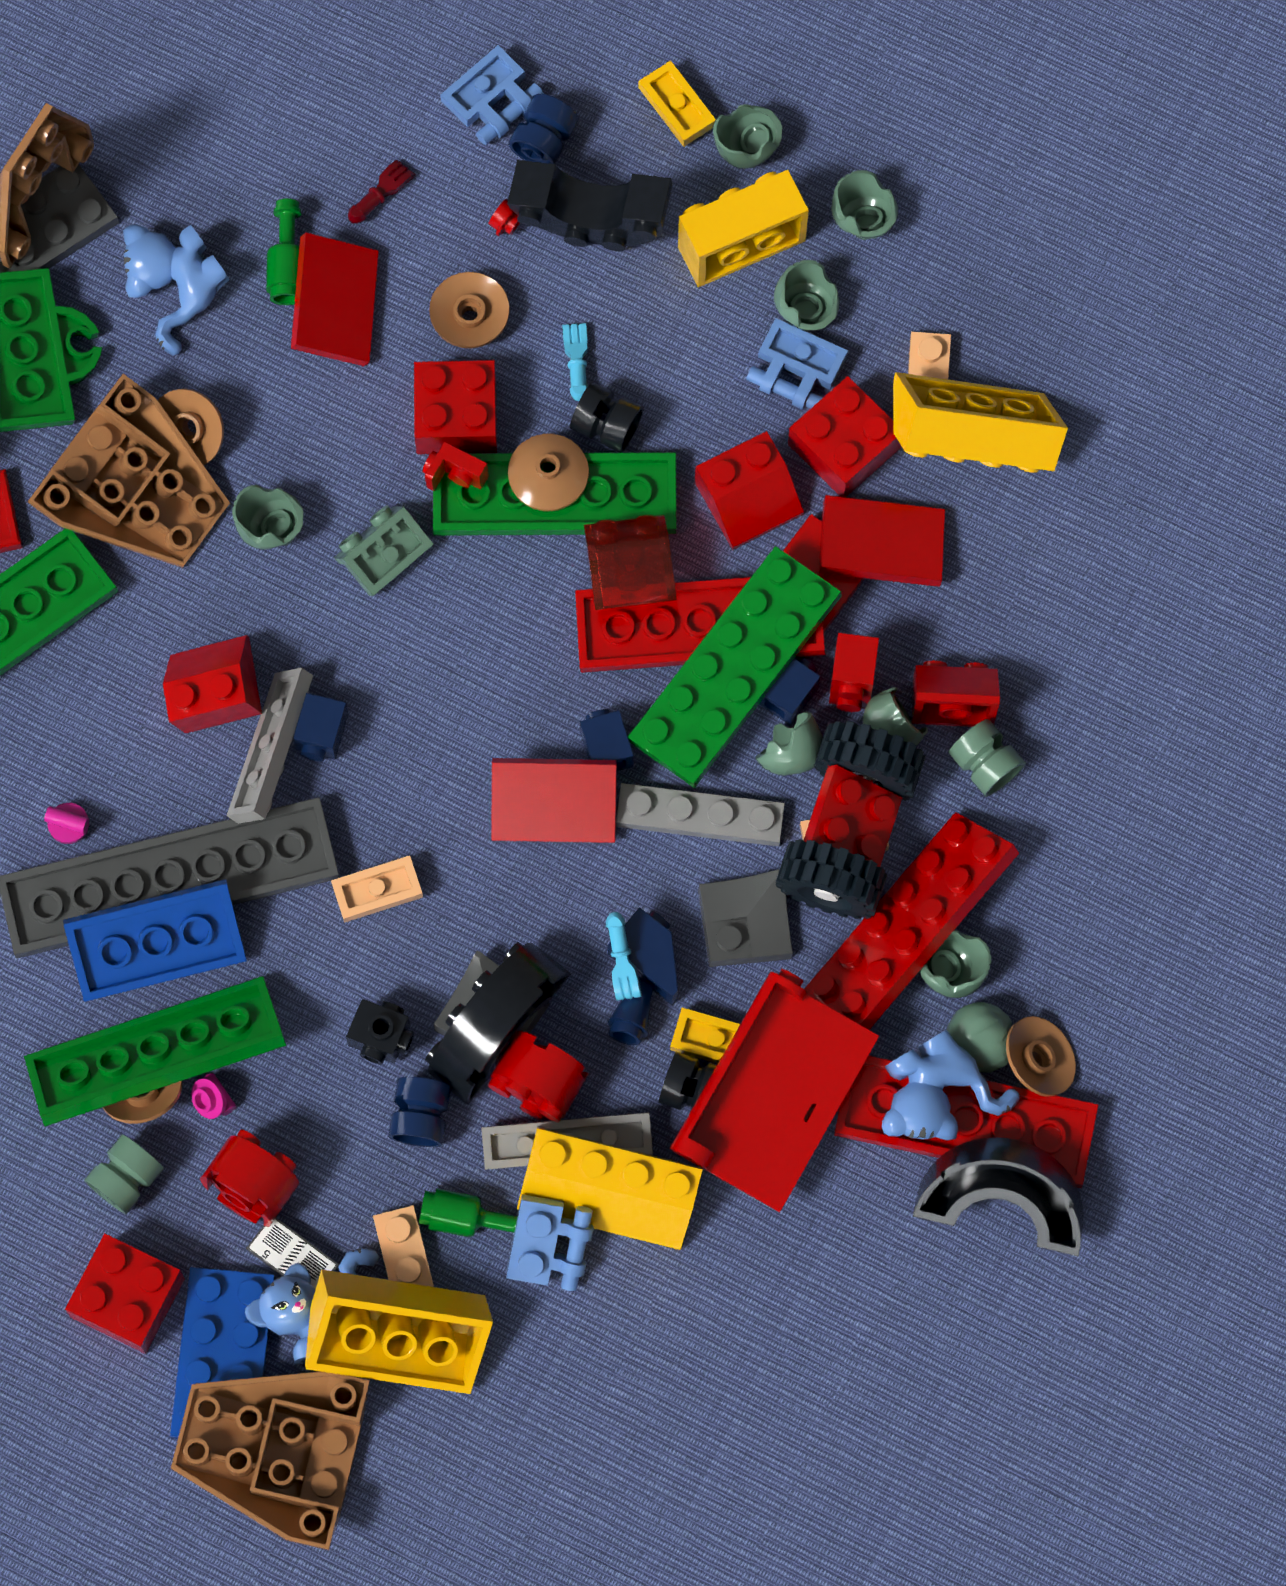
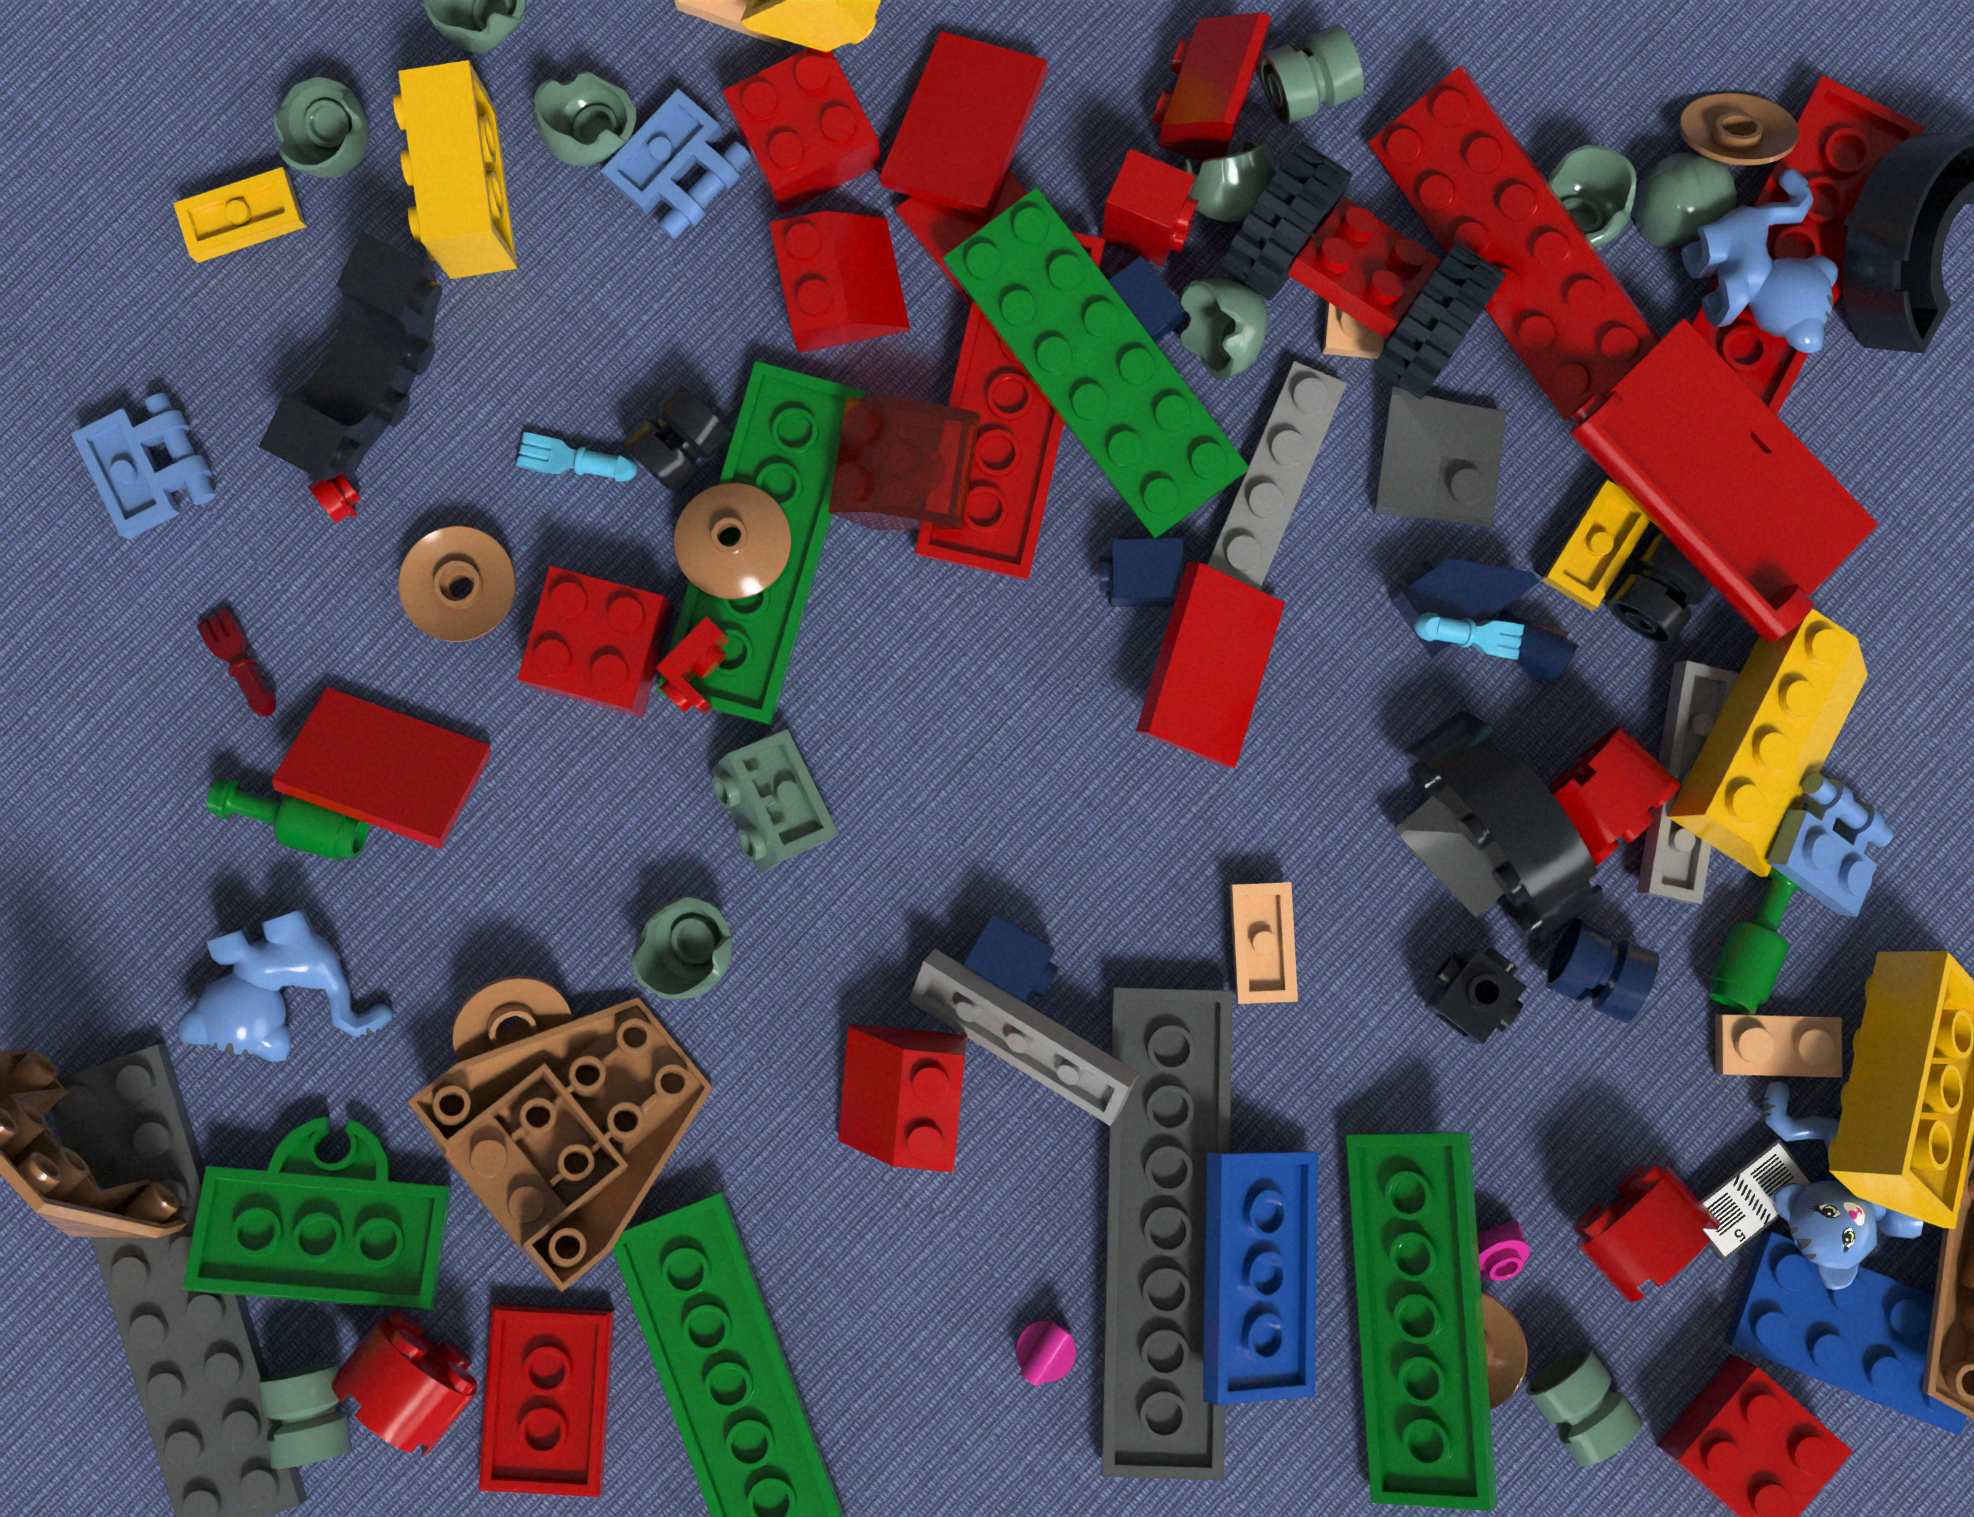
camera: 70 degrees left, 10 degrees up
(546, 126) = (214, 398): dark blue wheel -> none

